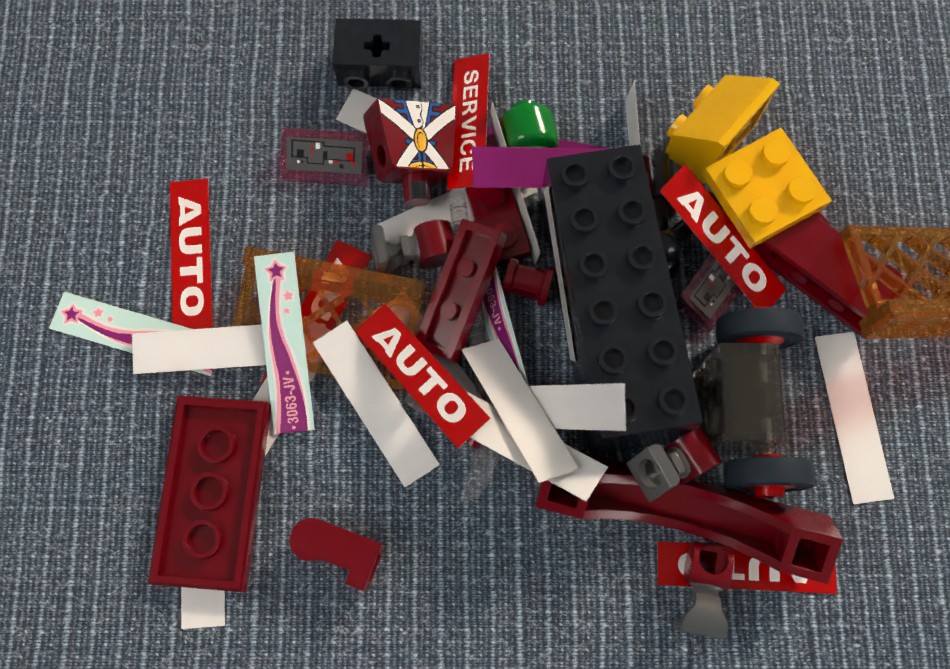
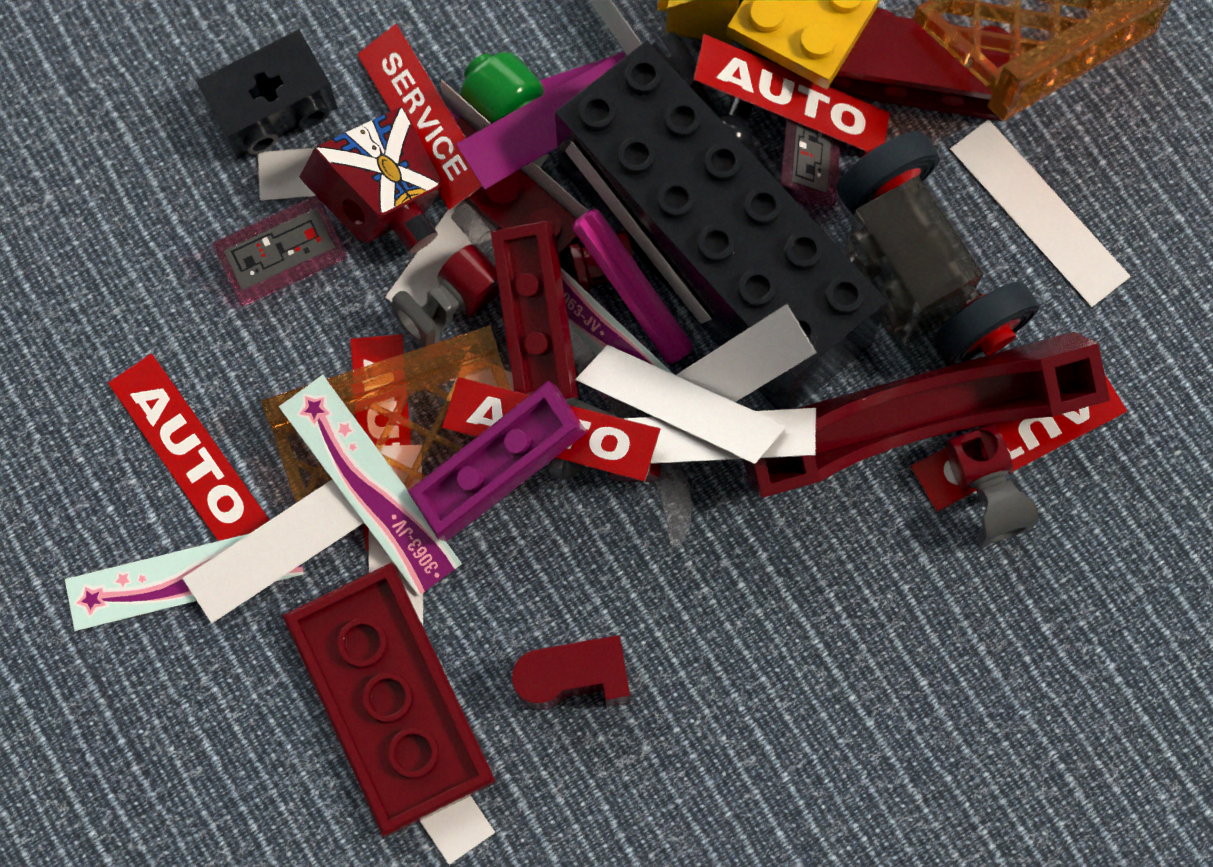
camera: 30 degrees left, 0 degrees up
(372, 375) = (497, 461): none -> magenta tile
(376, 404) = (533, 505): white sticker -> none
(536, 308) = (632, 286): none -> dark pink axle
(678, 462) = (882, 366): dark grey leg -> none

